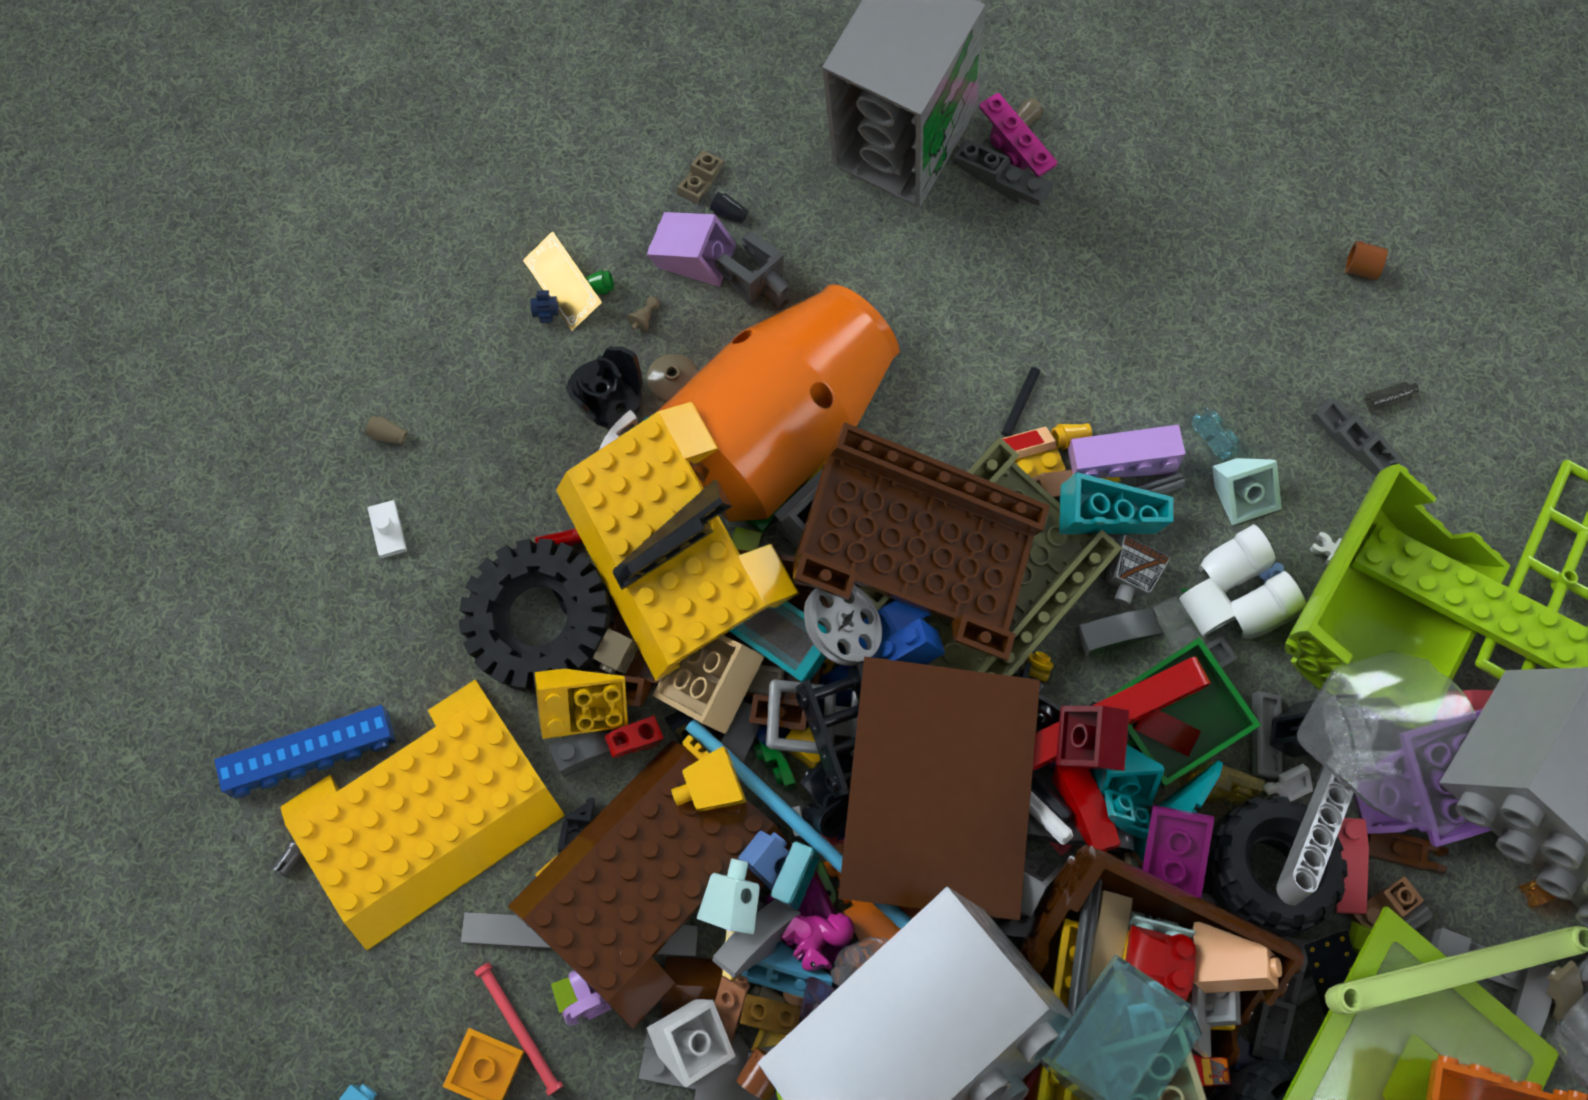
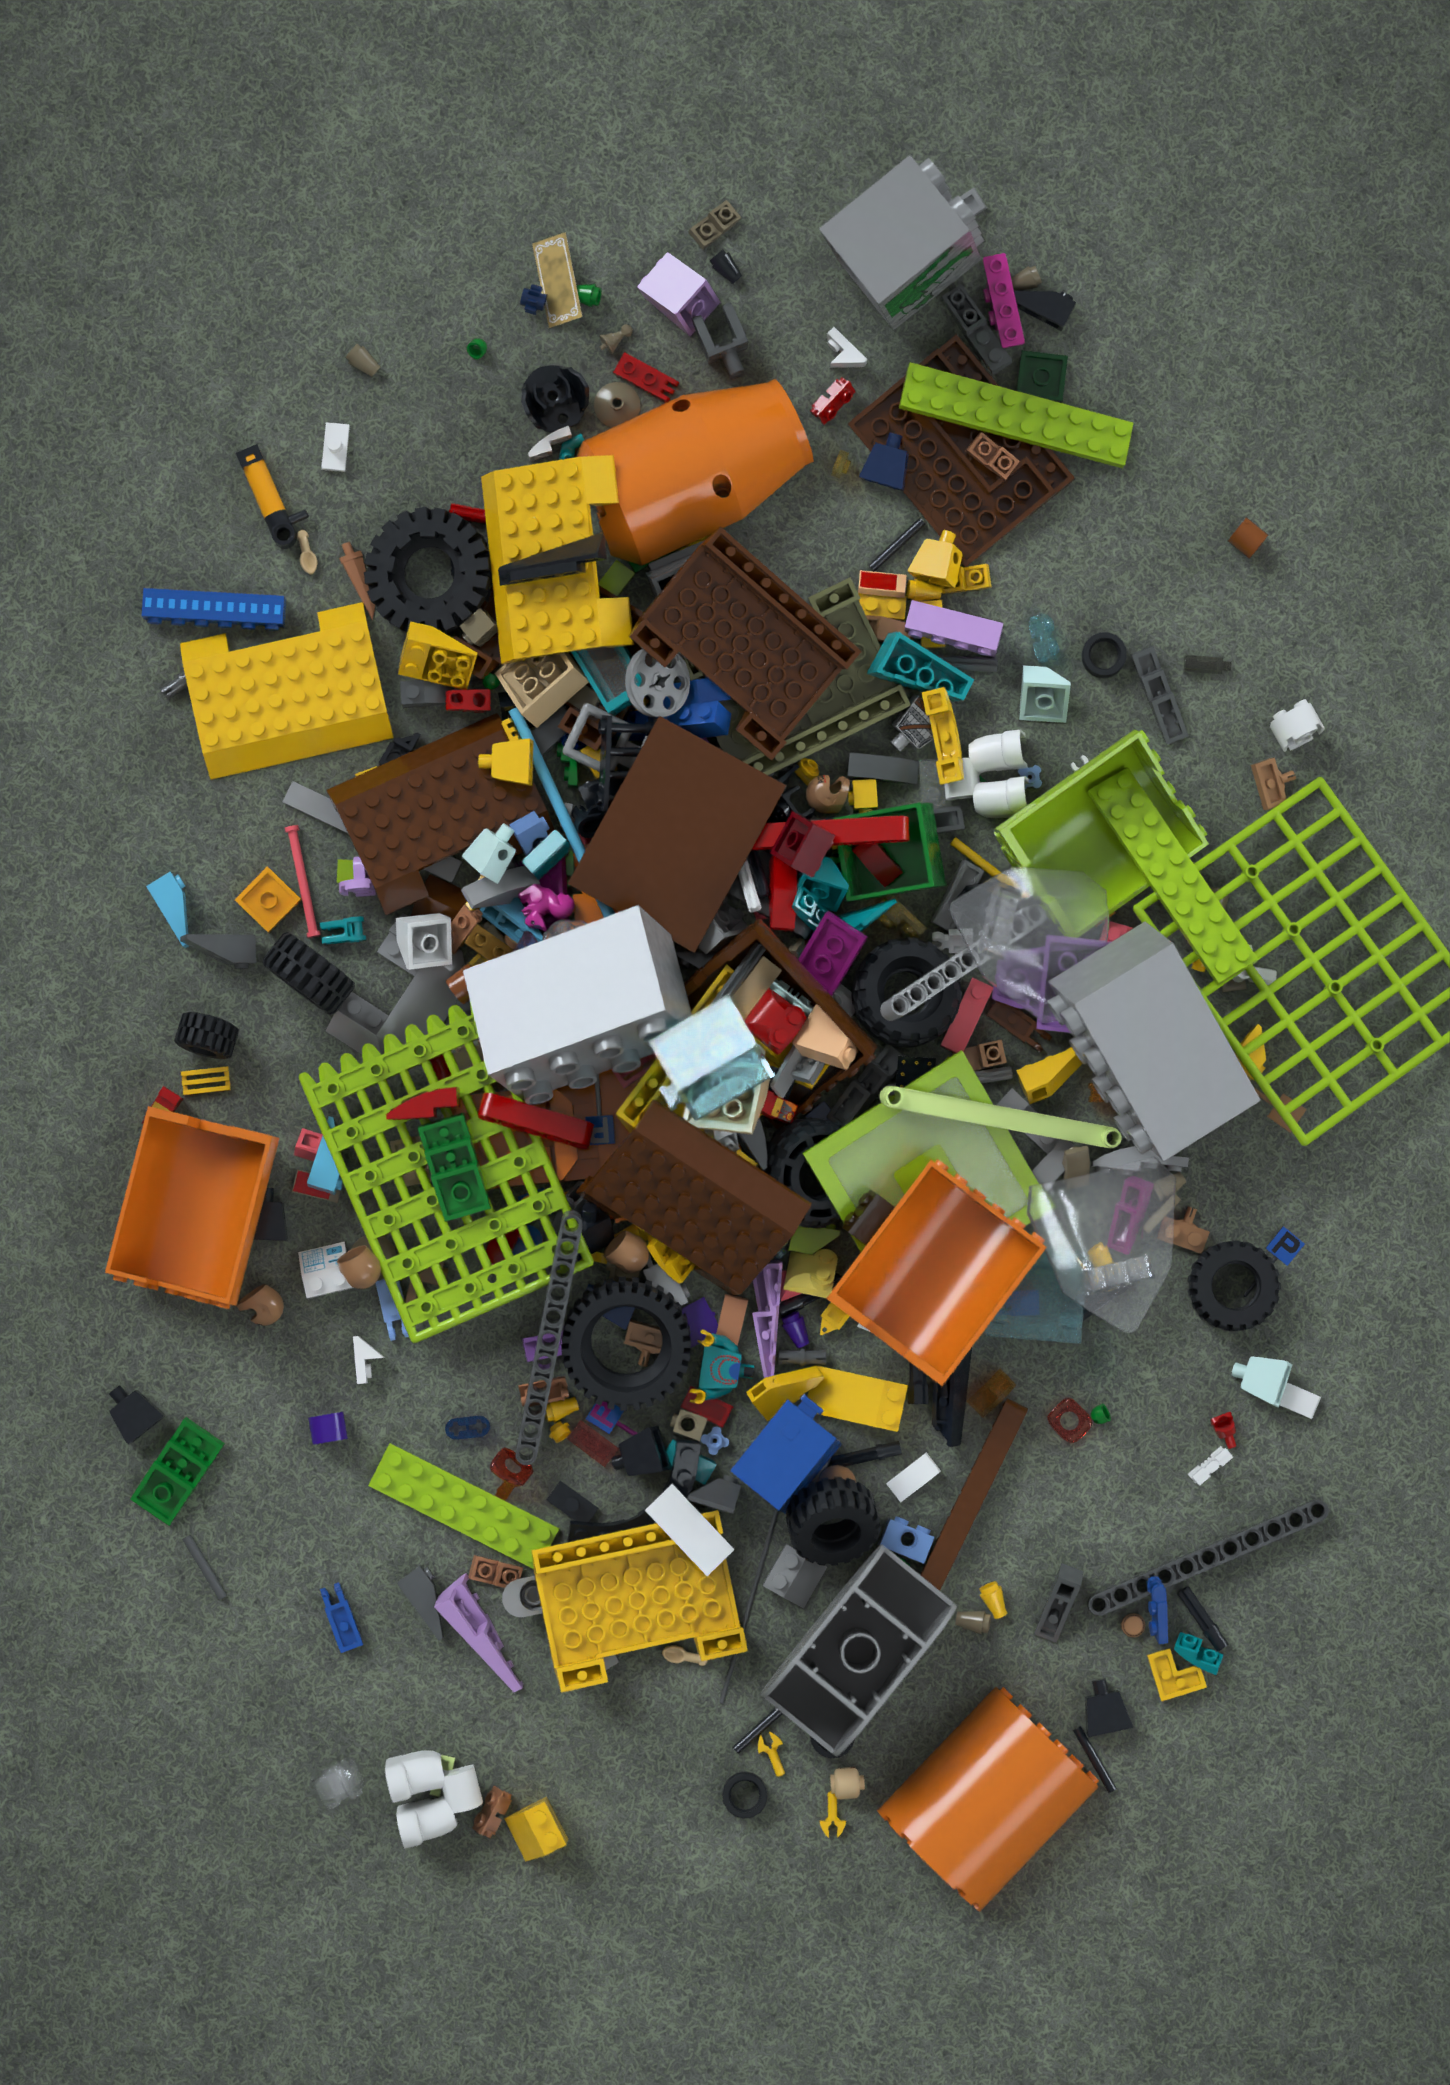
camera: 20 degrees right, 15 degrees up
(330, 608) = (268, 496): none -> piece
(396, 656) = (307, 558): none -> tan piece
(452, 645) = (355, 568): none -> nougat bar
(506, 379) = (477, 351): none -> green hinge
(600, 1066) = (352, 933): none -> teal piece
(651, 707) = (491, 681): none -> green hinge
(690, 339) = (645, 377): none -> red hinge
(888, 241) = (849, 354): none -> white slope
(895, 281) = (840, 392): none -> red hinge
(929, 345) = (841, 465): none -> clear yellow plate
(976, 326) = (887, 464): none -> dark blue torso
(1042, 289) = (949, 483): none -> reddish brown slope
(1061, 129) = (1046, 306): none -> black slope
(1069, 682) = (827, 797): none -> medium nougat helmet
(1073, 397) = (937, 561): none -> yellow torso
(1078, 278) = (992, 456): none -> nougat slope
(1081, 231) = (1016, 415): none -> lime plate
(1086, 193) = (1042, 375): none -> dark green plate
(1107, 407) = (971, 579): none -> yellow slope
(1113, 667) = (863, 795): none -> yellow brick
(1174, 565) = (945, 735): none -> yellow slope
(1267, 687) = (974, 857): none -> yellow bar
(1280, 443) = (1104, 637): none -> black tyre
(1469, 900) = (1048, 1075): none -> yellow slope
(1518, 415) = (1296, 726): none -> white brick
(1523, 484) = (1270, 782): none -> medium nougat plate

